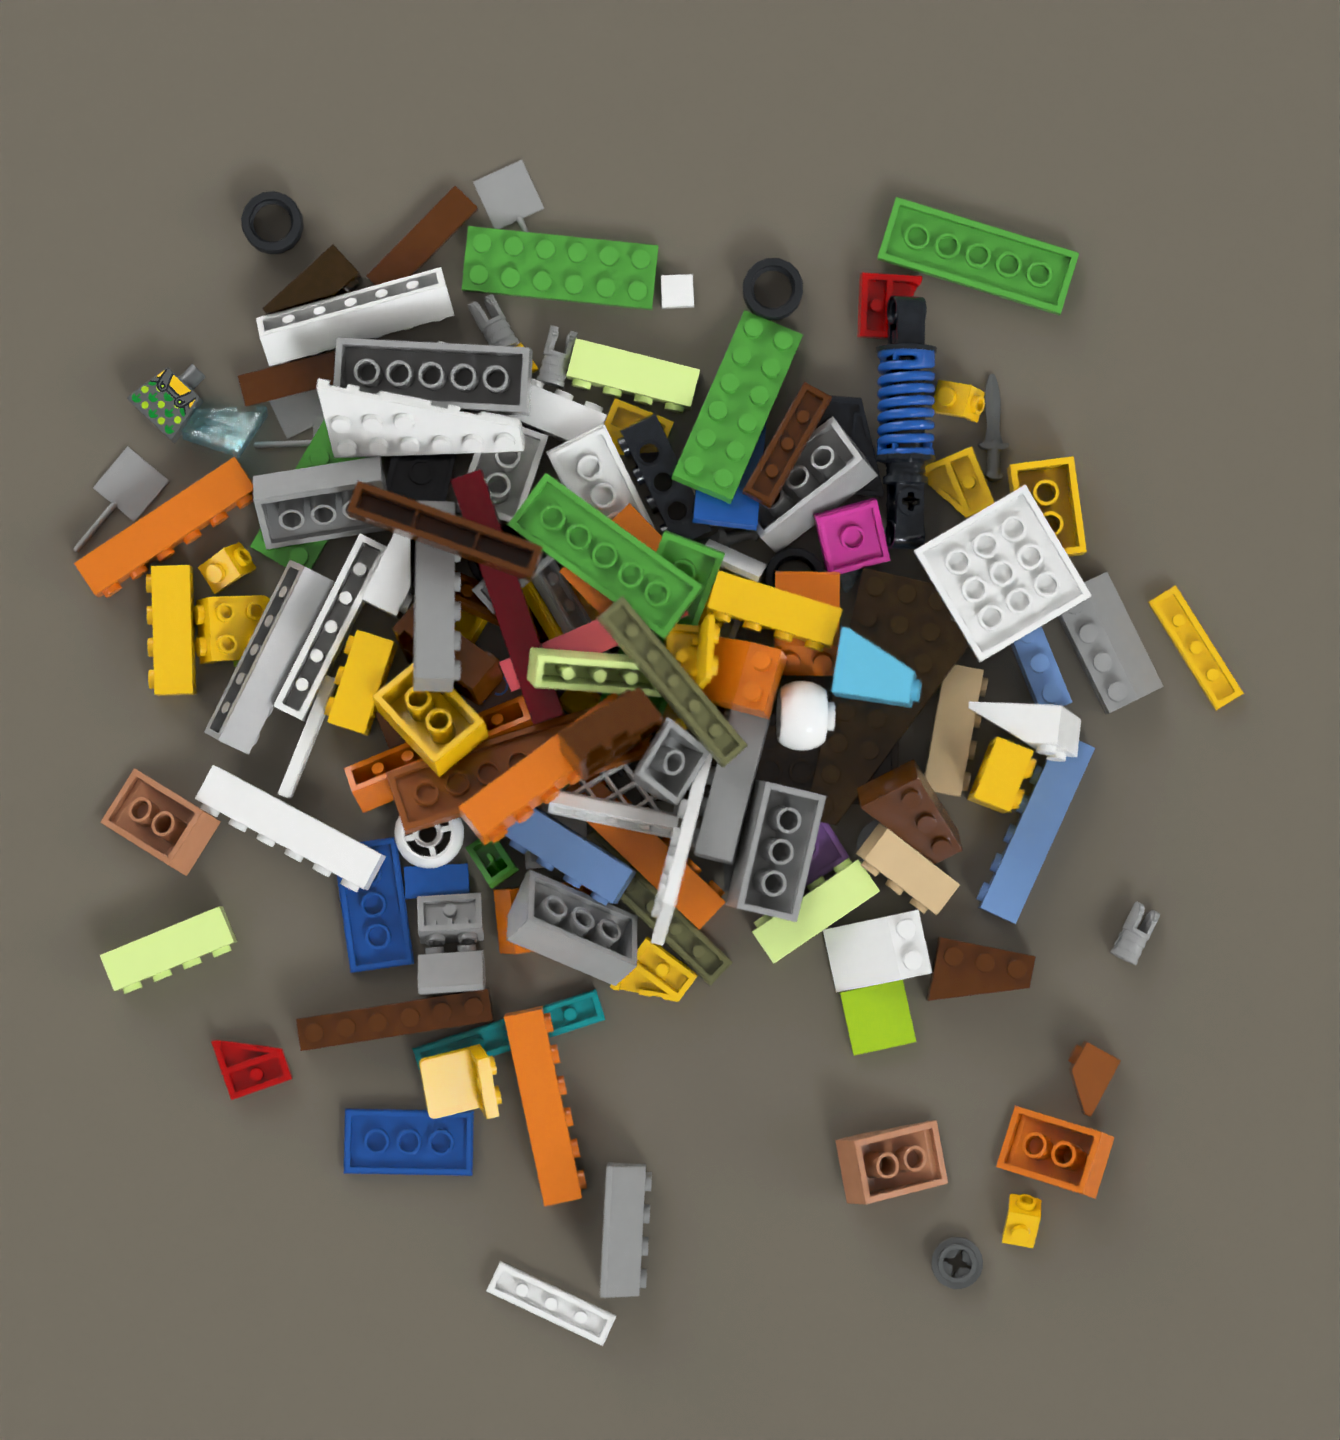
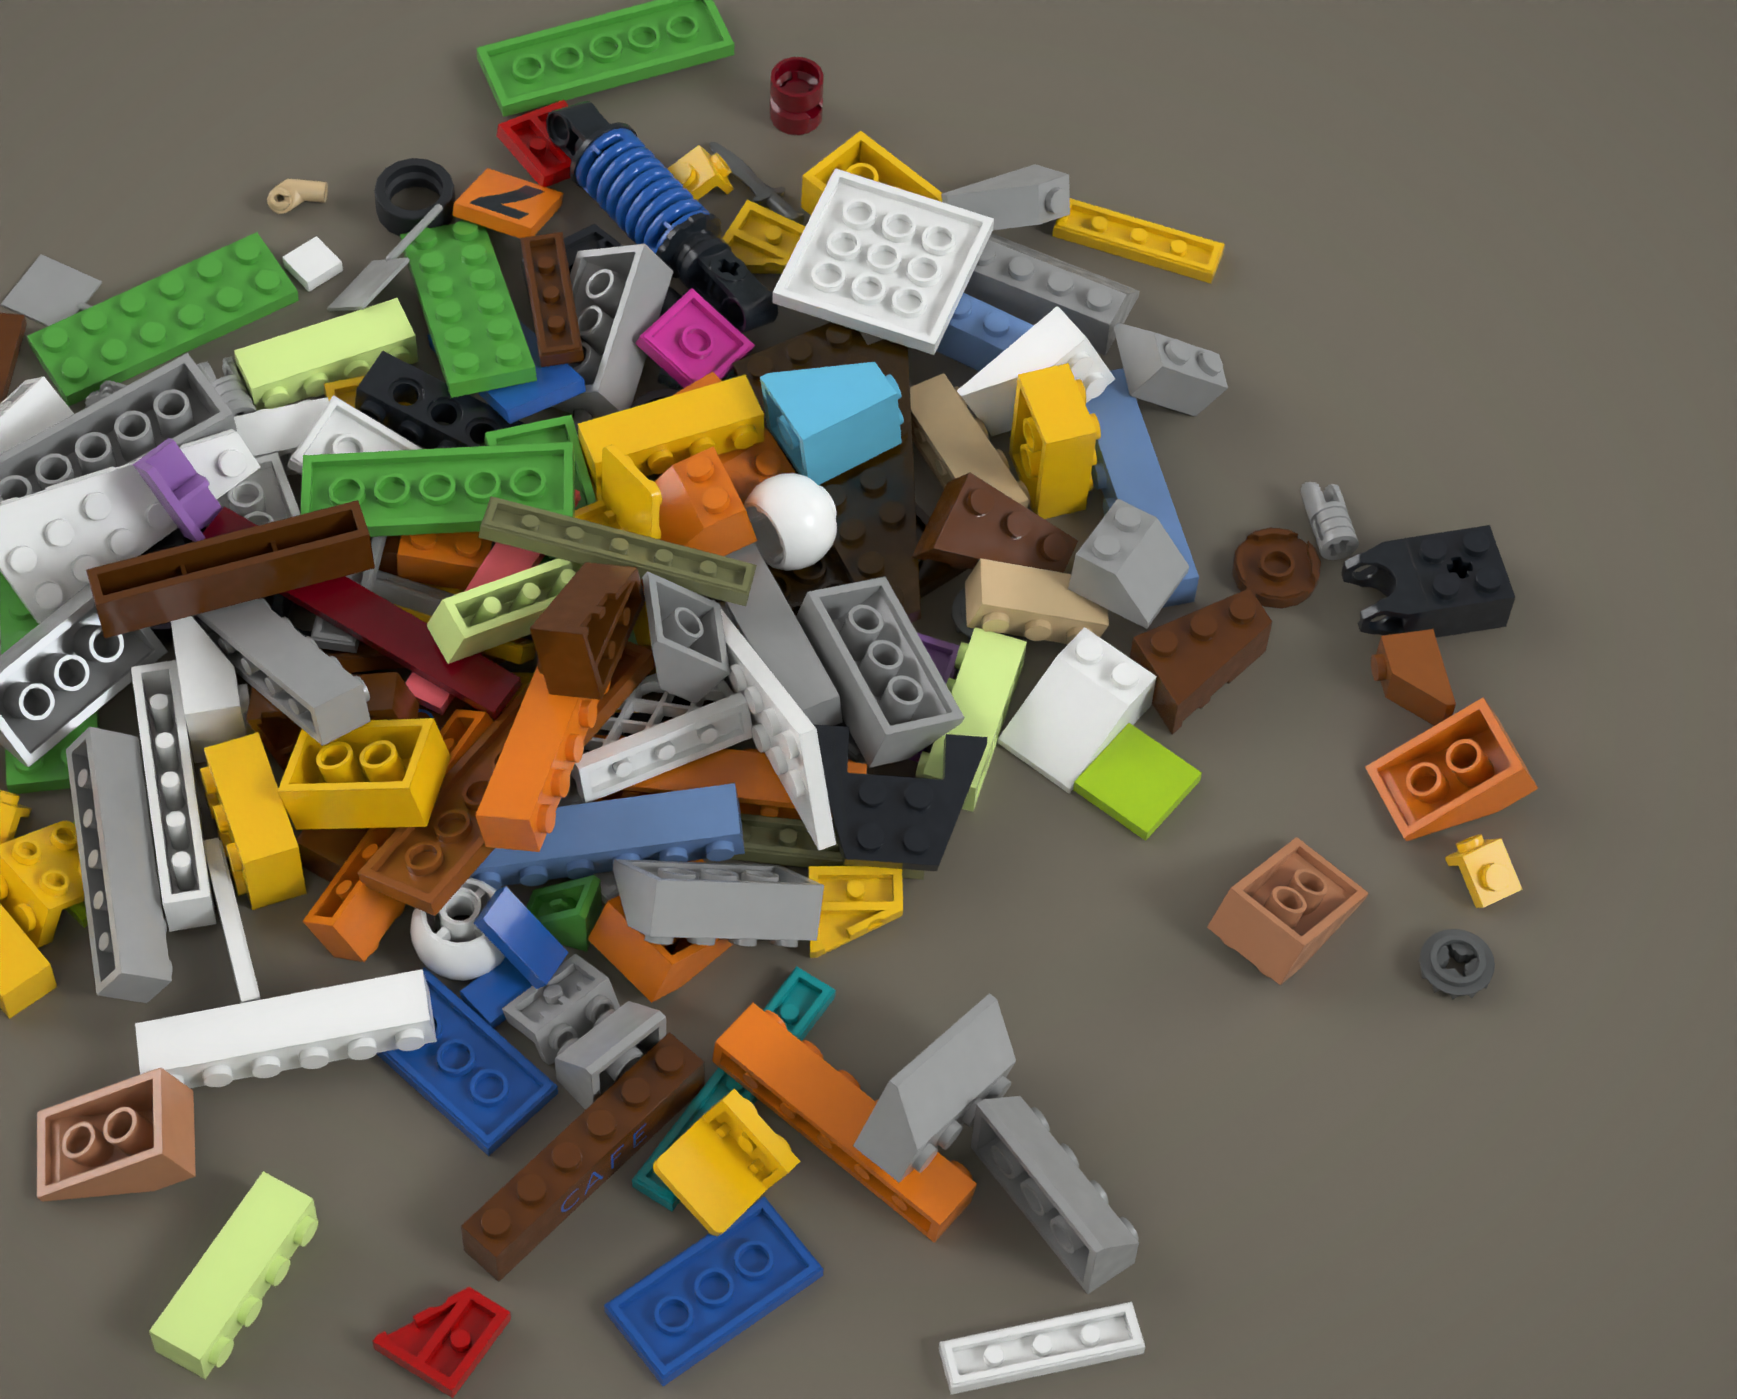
camera: 45 degrees left, 30 degrees down
(450, 871) = (521, 937): none -> blue tile
(456, 445) = (179, 488): none -> medium lavender panel
(596, 1140) = (939, 1092): none -> light grey slope
(702, 338) = (379, 272): none -> light grey piece
(704, 226) = (294, 192): none -> tan arm
(711, 949) = (894, 817): none -> black wing
(824, 338) = (507, 204): none -> orange tile
(973, 895) = (1128, 565): none -> light grey slope
(1065, 386) = (796, 95): none -> dark red wheel
(1078, 940) = (1276, 567): none -> reddish brown tile
(1124, 763) = (1169, 370): none -> light grey slope
(1129, 573) = (1017, 197): none -> light grey slope
(1142, 1025) = (1434, 583): none -> black brick

